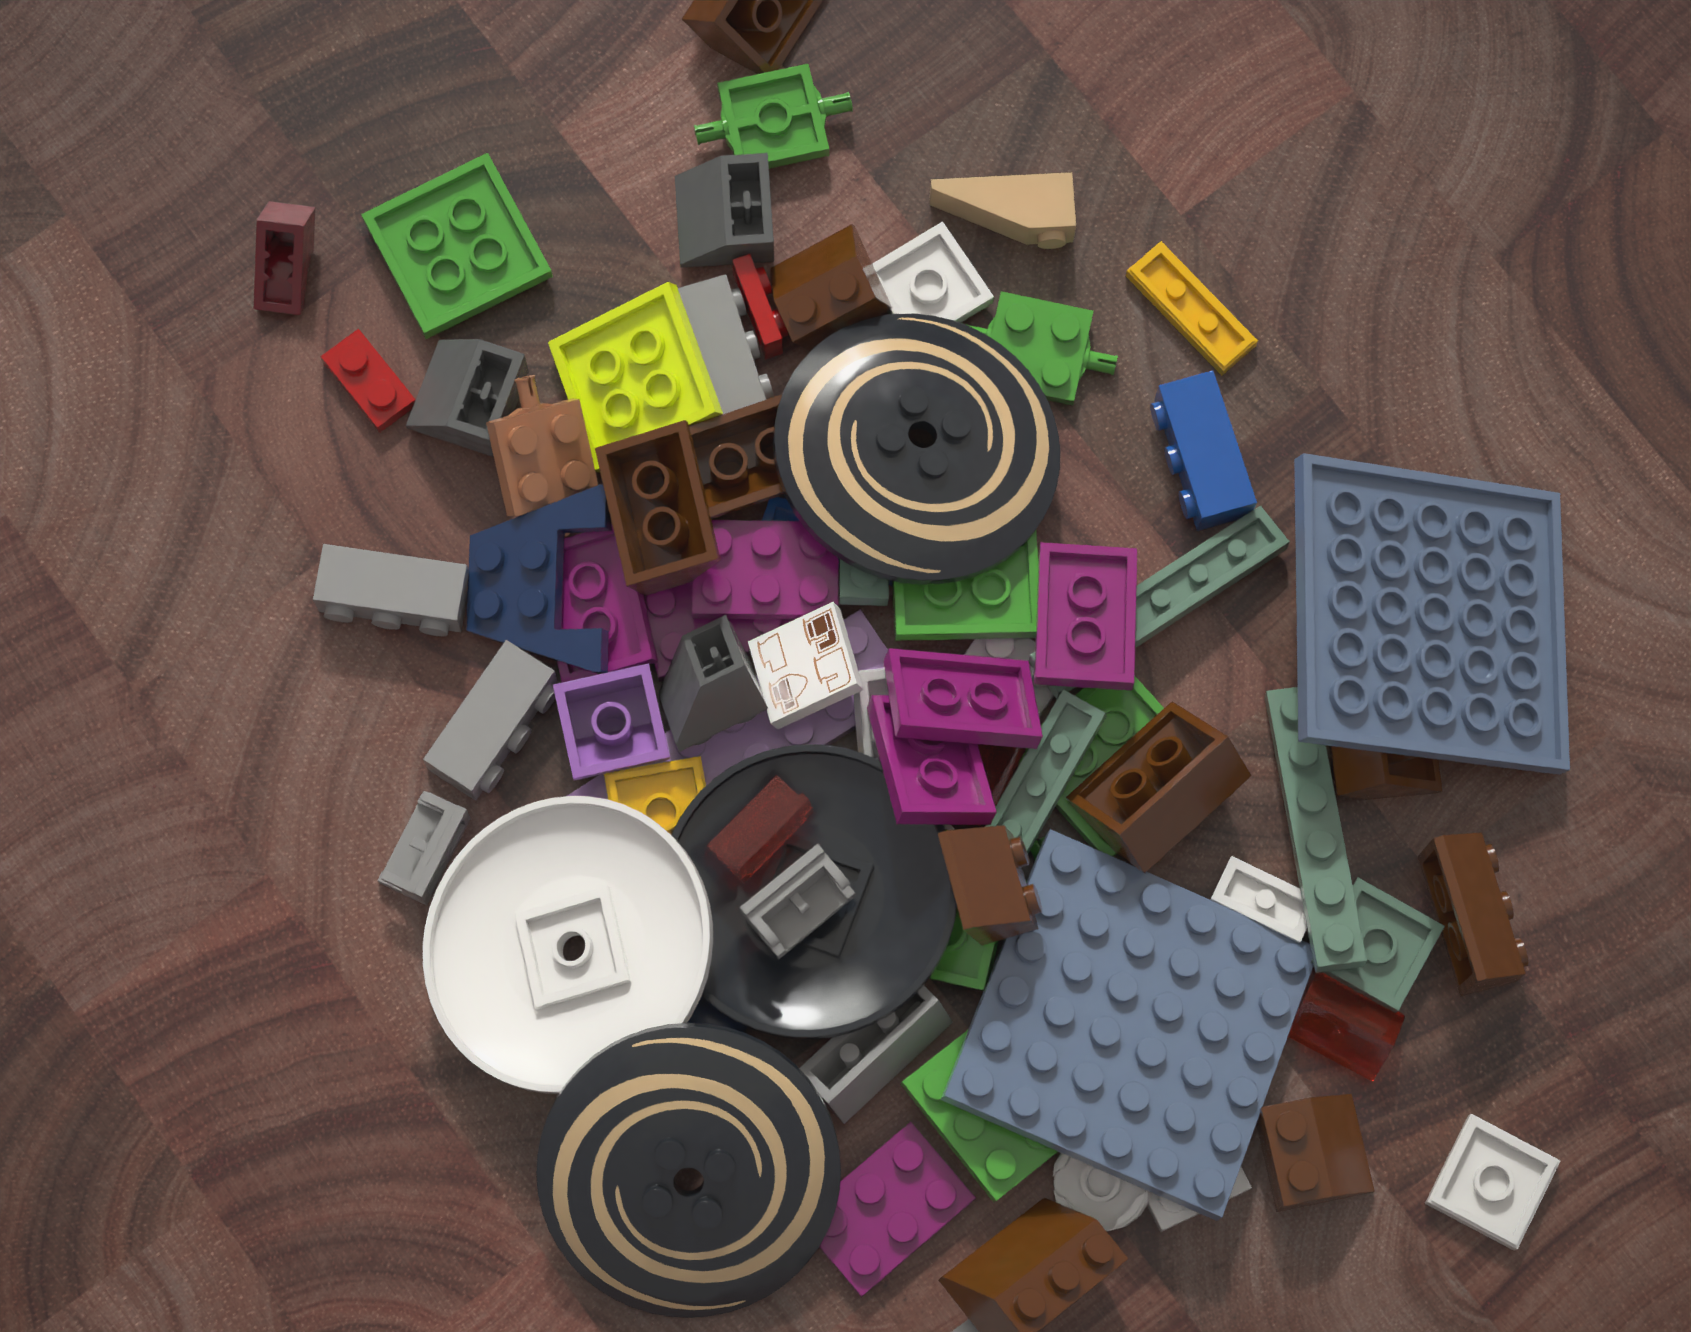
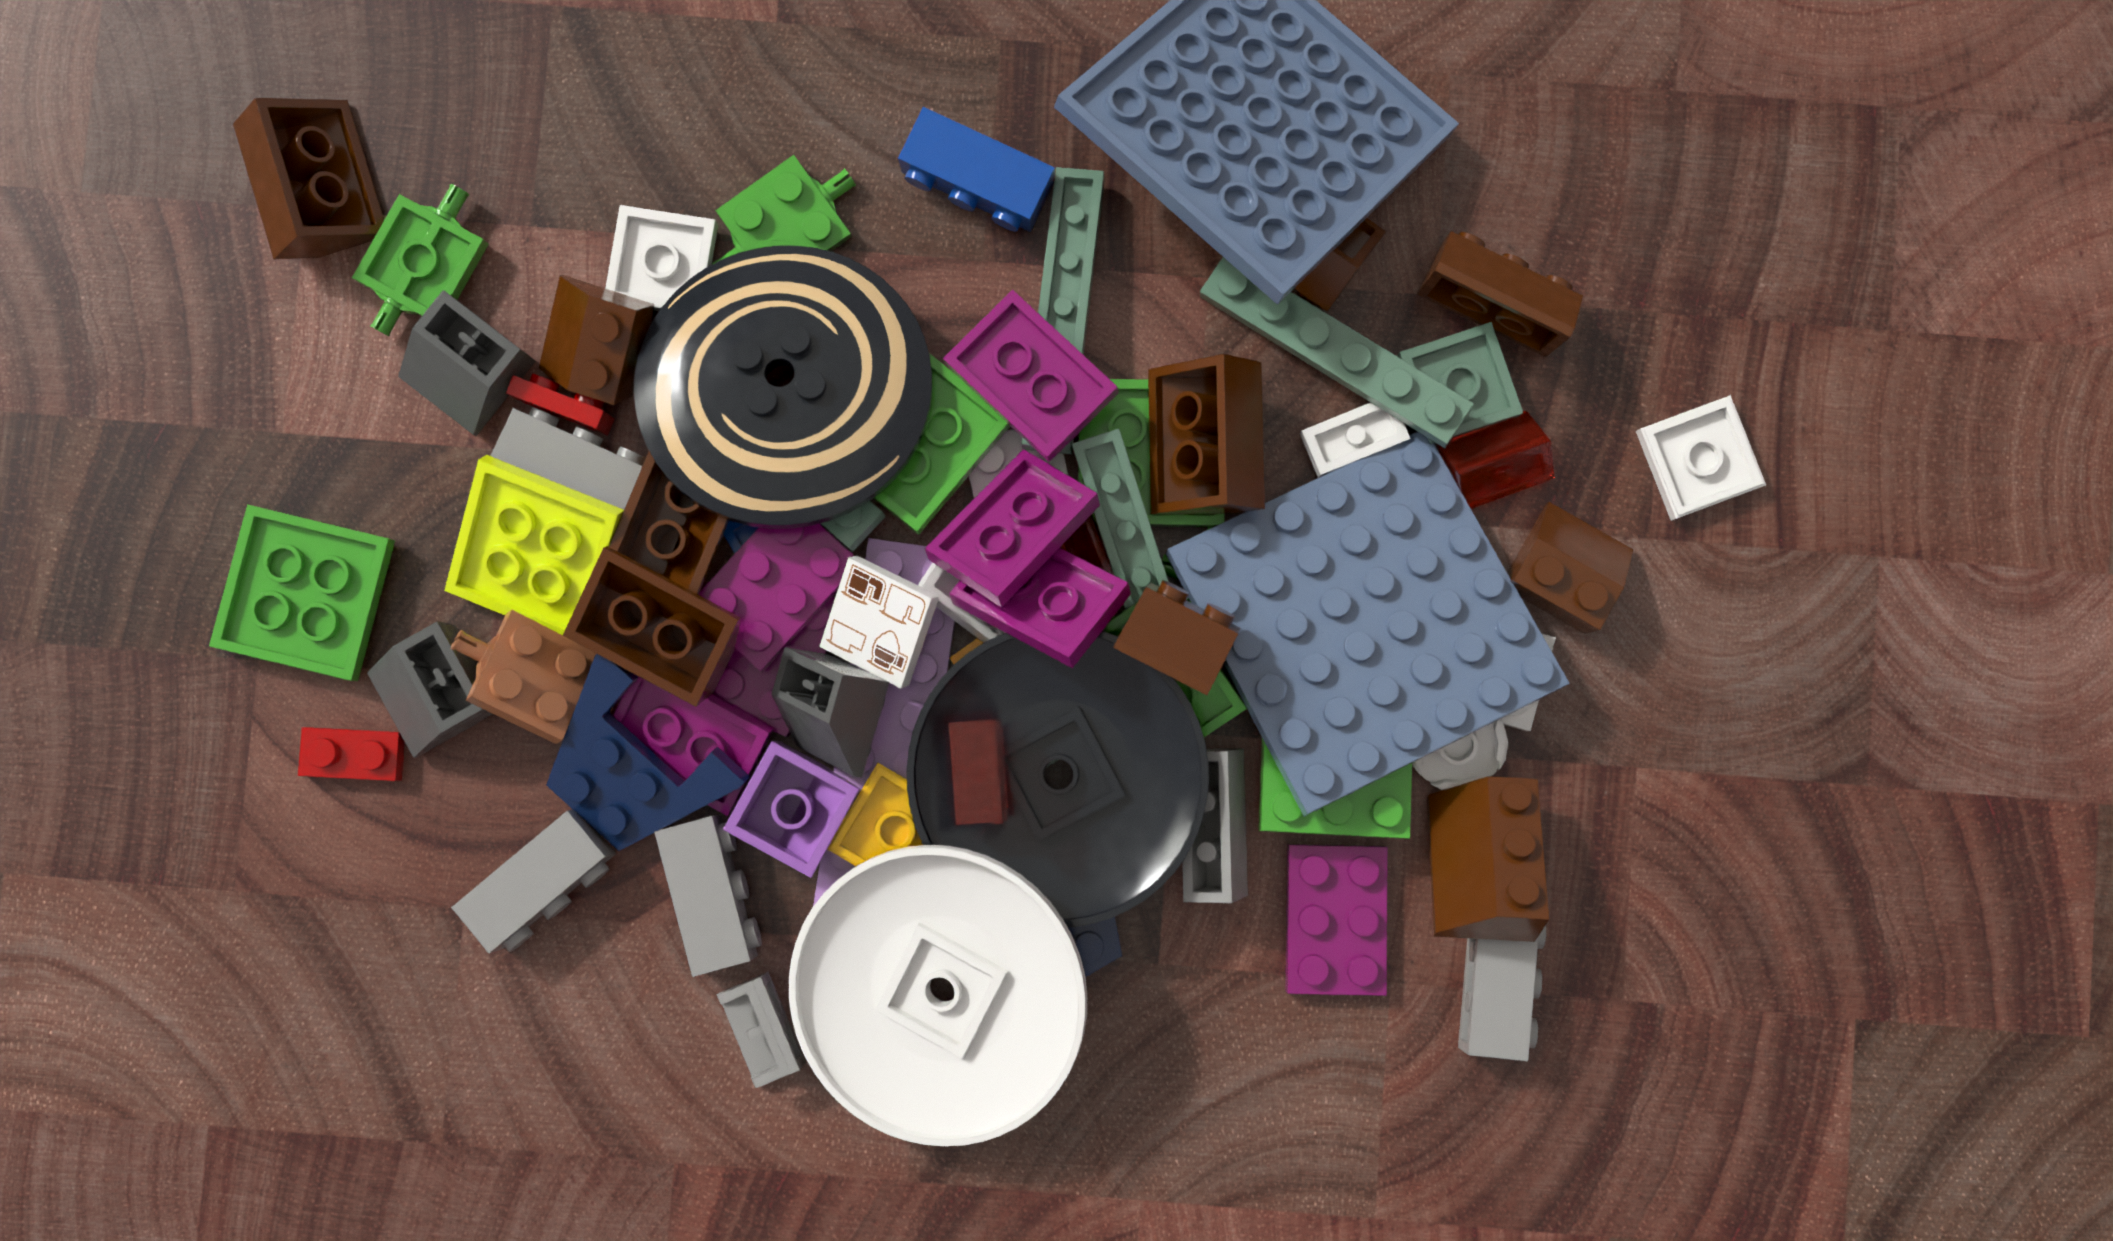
camera: 45 degrees left, 10 degrees up
(283, 257) = (188, 736): dark red arch -> none
(679, 1103) = (1141, 1016): black dish -> none
(798, 901) = (1062, 795): light grey hinge -> none
(1018, 206) = (659, 137): tan slope -> none
(1191, 308) = (855, 80): yellow tile -> none

